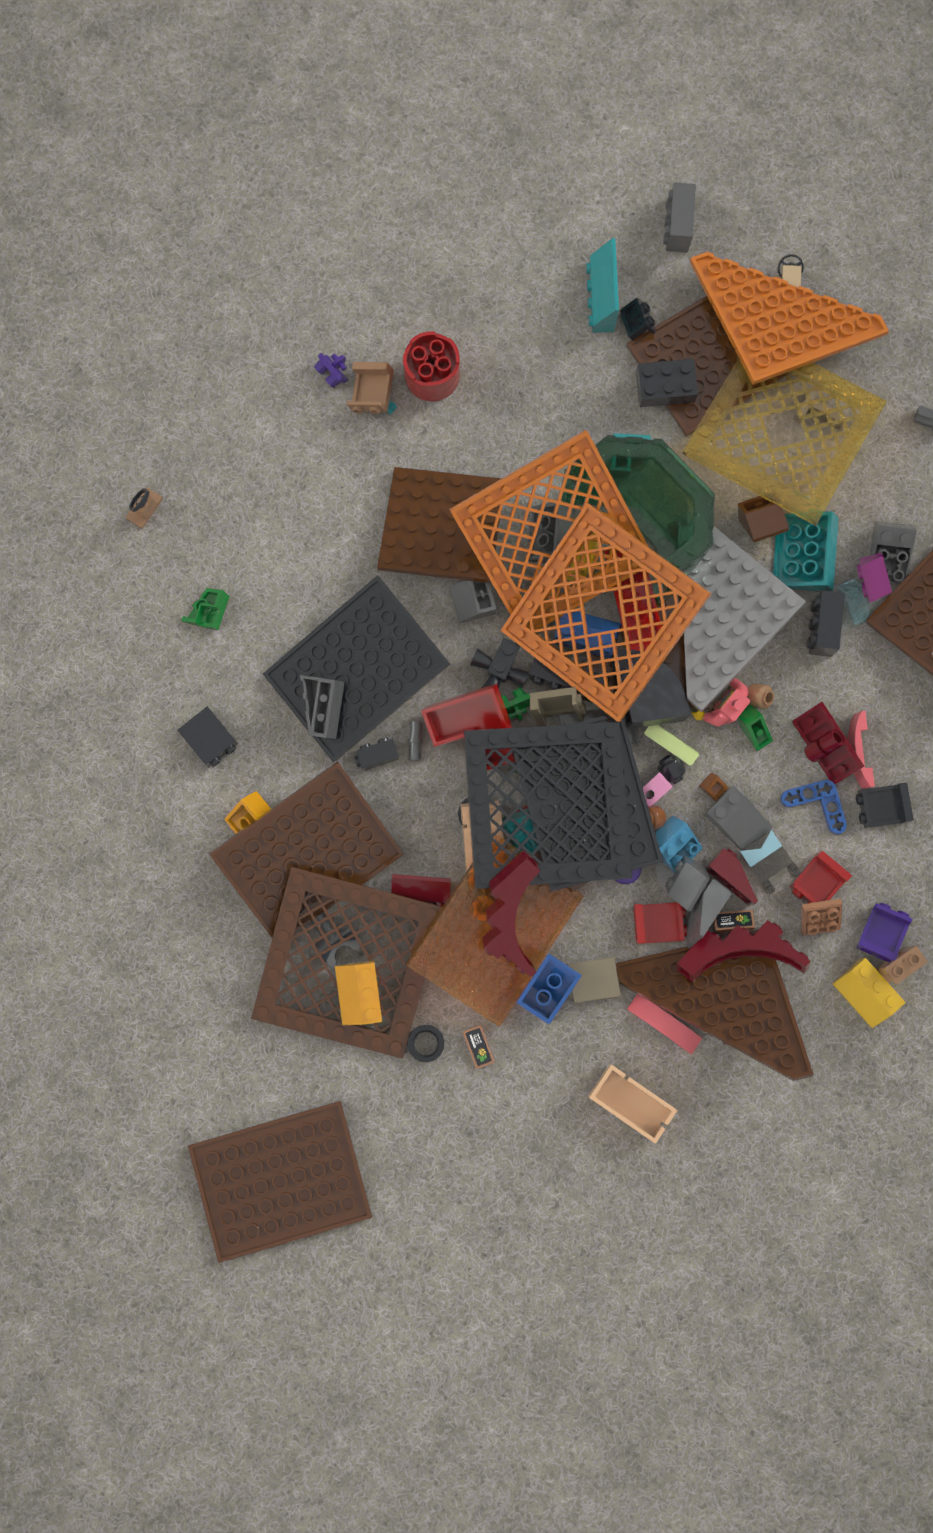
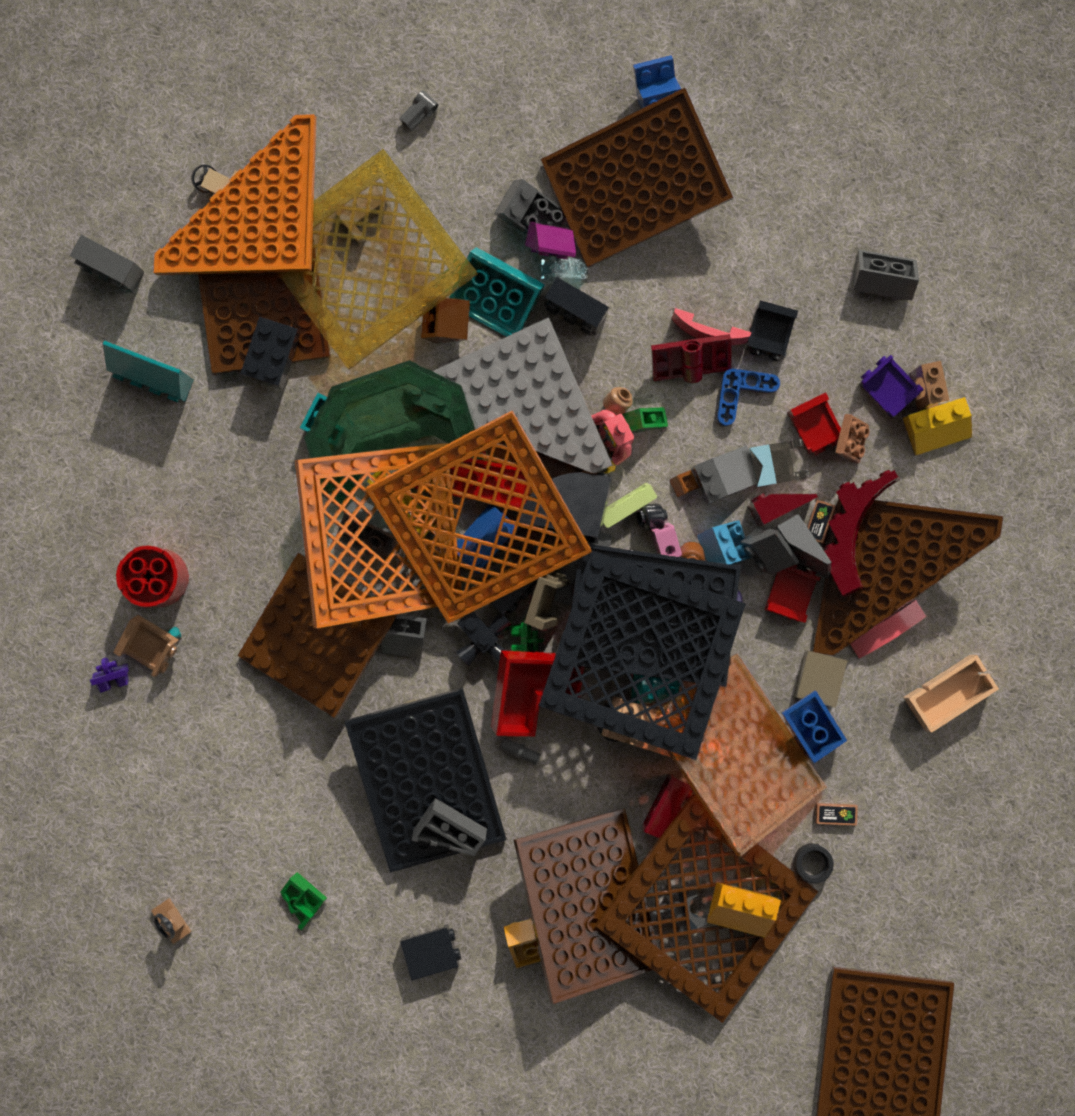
camera: 70 degrees left, 5 degrees up
(377, 754) = (517, 794): black brick -> none
(501, 915) = (713, 731): dark red arch -> none
(637, 318) = (192, 351): black bracket -> none

